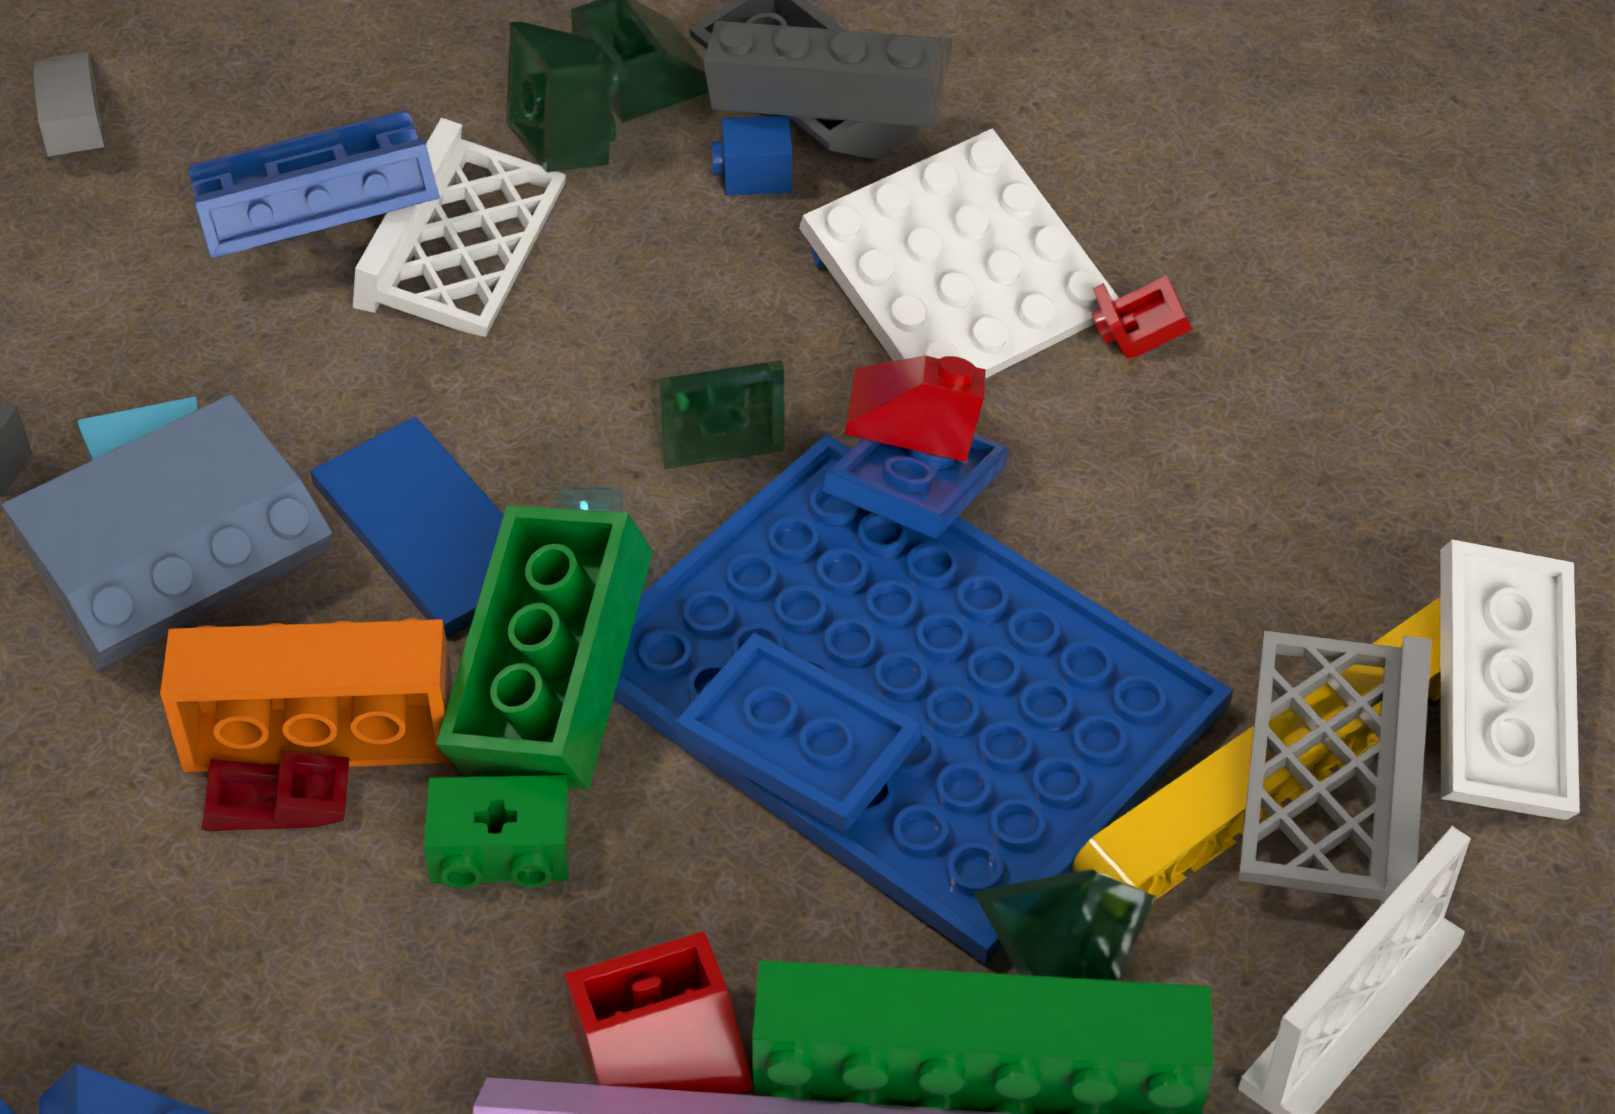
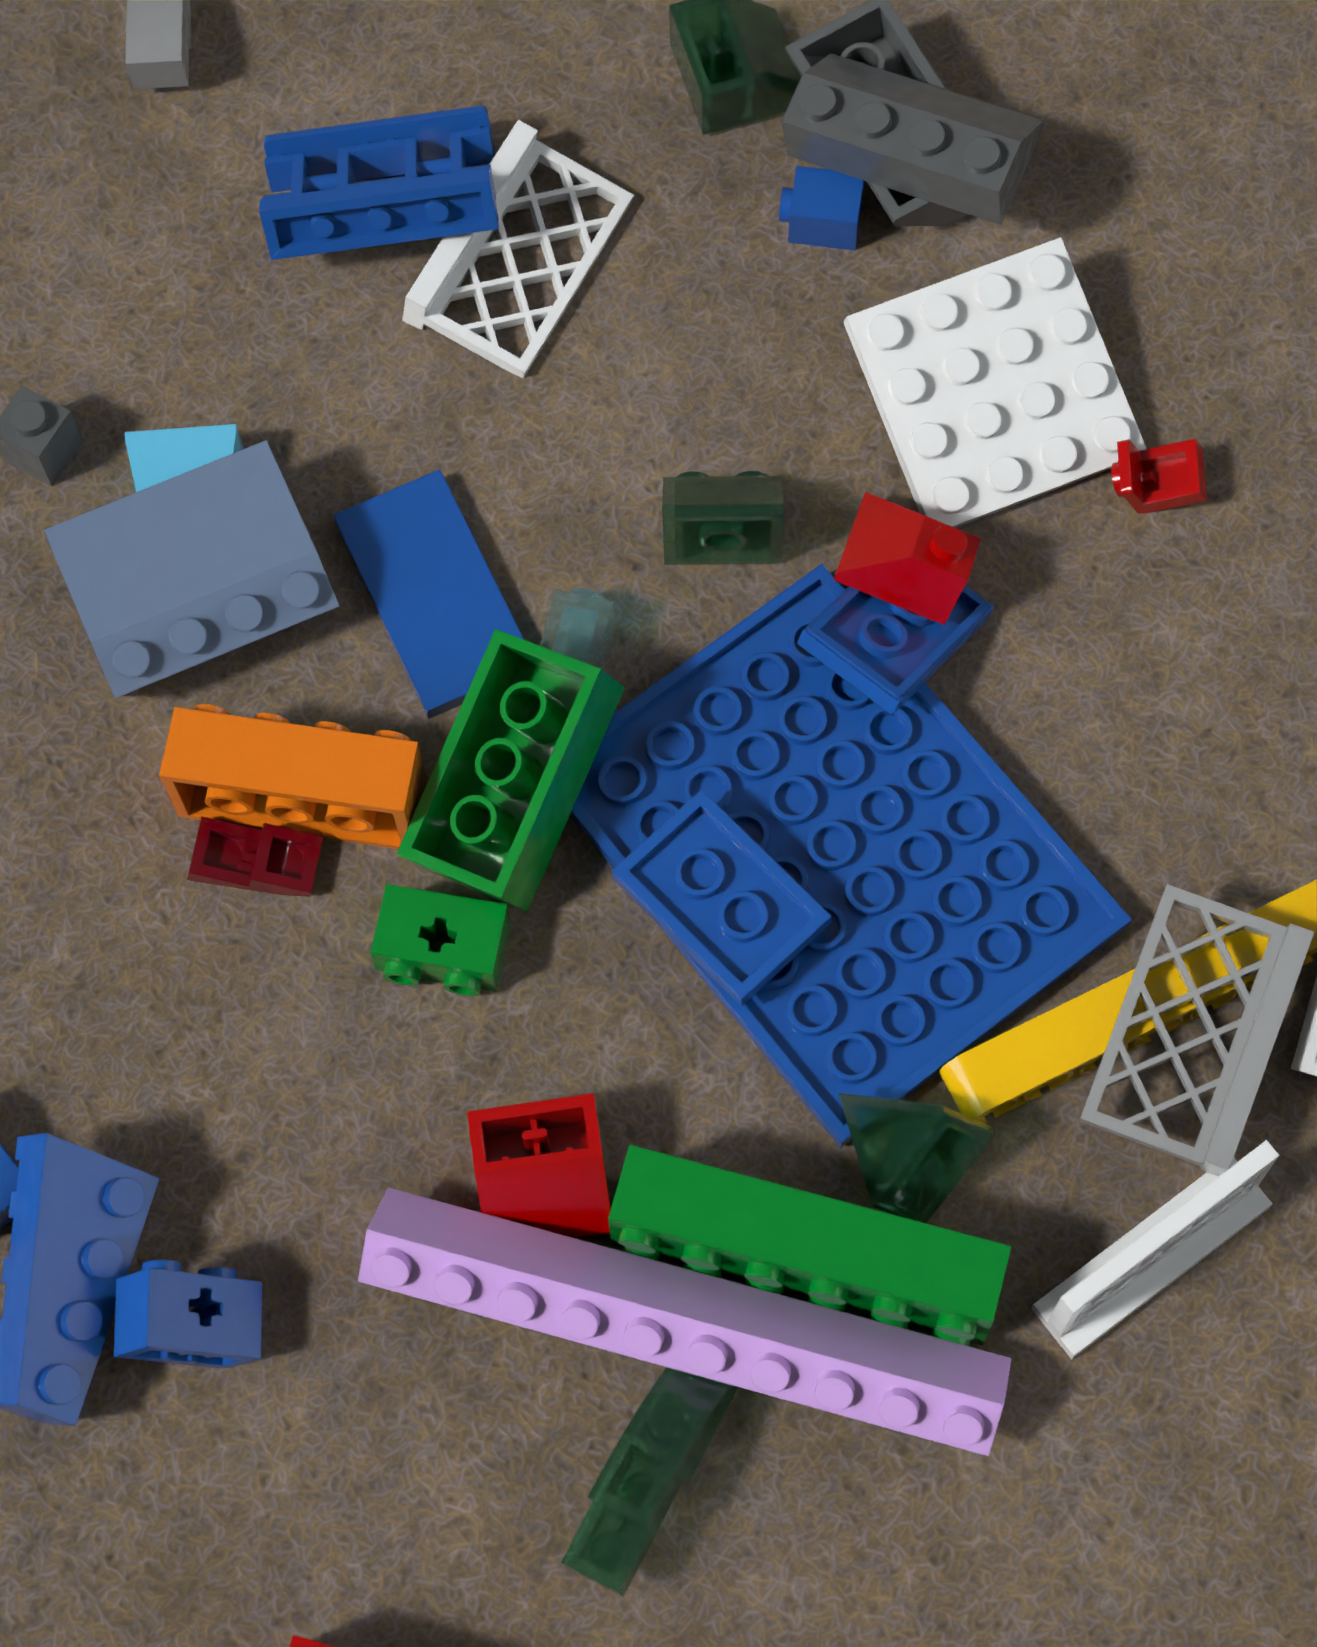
camera: 15 degrees right, 20 degrees up
(561, 97) = (640, 113): clear green slope -> none

